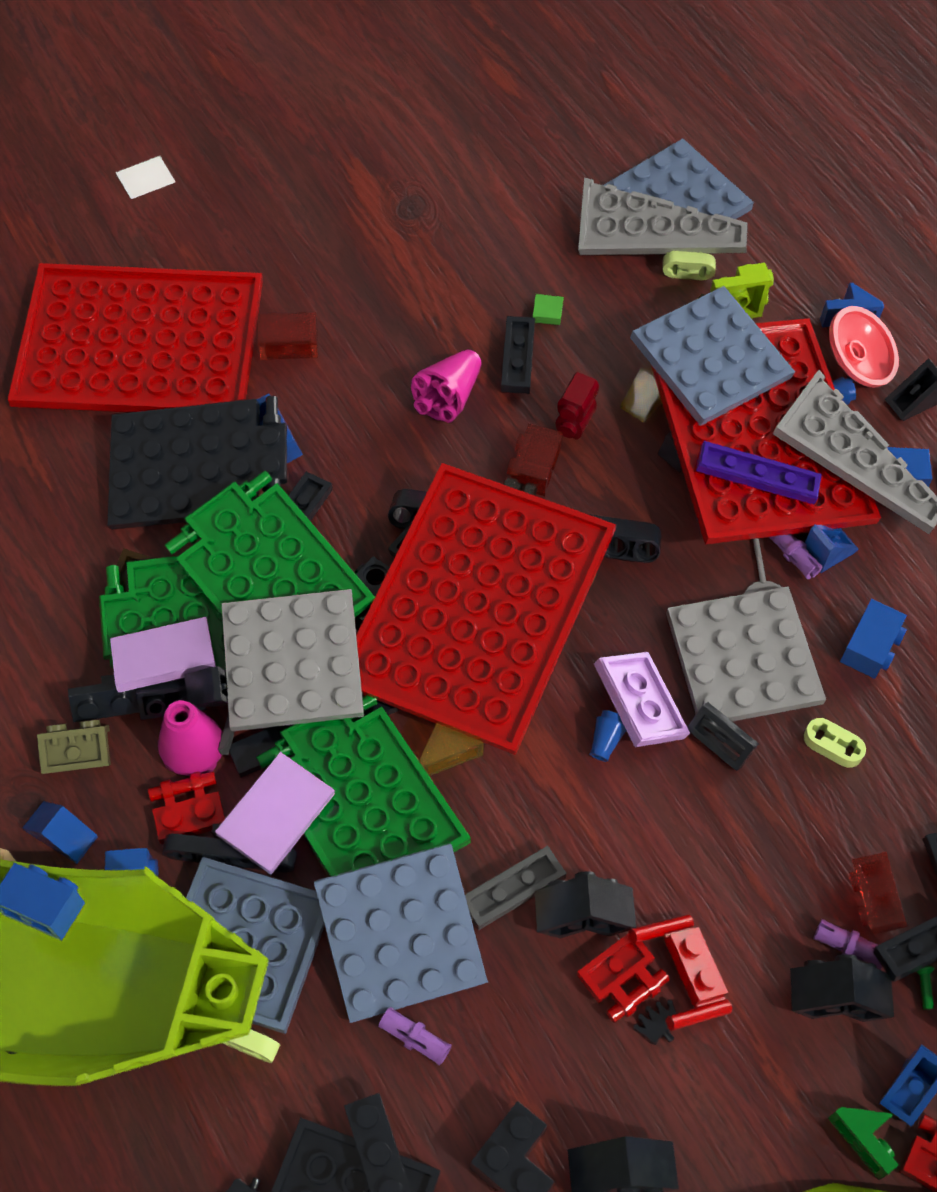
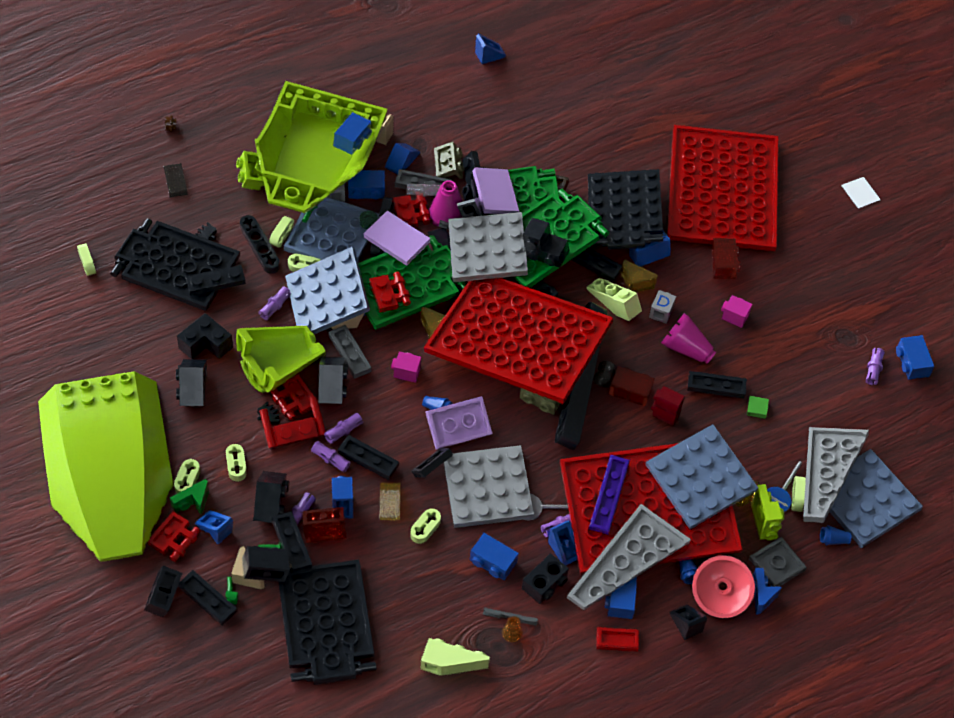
camera: 90 degrees right, 5 degrees down
(92, 1113) = (250, 171): none -> lime plate
(125, 788) = (416, 178): none -> dark grey plate
(150, 779) = (422, 189): none -> clear axle
(222, 873) = (367, 219): none -> clear green tile
(275, 1088) = (256, 245): none -> black beam
(305, 557) = (542, 245): none -> black brick
(311, 987) = (303, 261): none -> yellowish green beam
(328, 453) = (637, 278): none -> clear yellow slope
(368, 483) = (617, 299): none -> yellowish green slope
(381, 419) = (662, 306): none -> light grey brick
(383, 325) = (736, 311): none -> dark pink brick
(404, 825) = (383, 292): none -> red plate
(447, 129) = (915, 357): none -> blue brick
(463, 174) = (875, 366): none -> medium lavender pin
(536, 787) = (406, 366): none -> dark pink brick
(553, 1007) = (276, 354): none -> lime cone
(687, 291) = (780, 494): none -> blue piece
(690, 901) = (343, 428): none -> medium lavender pin
(725, 839) = (368, 457): none -> black plate
(734, 901) = (330, 456): none -> medium lavender pin
(754, 233) = (834, 536): none -> blue cone
(775, 1076) = (231, 462): none -> yellowish green beam
(796, 799) = (389, 501): none -> clear yellow slope
(798, 294) = (779, 562): none -> dark grey tile
(820, 1148) = (183, 475): none -> yellowish green beam
(827, 865) = (343, 494): none -> blue brick
(890, 573) = (541, 576): none -> black brick

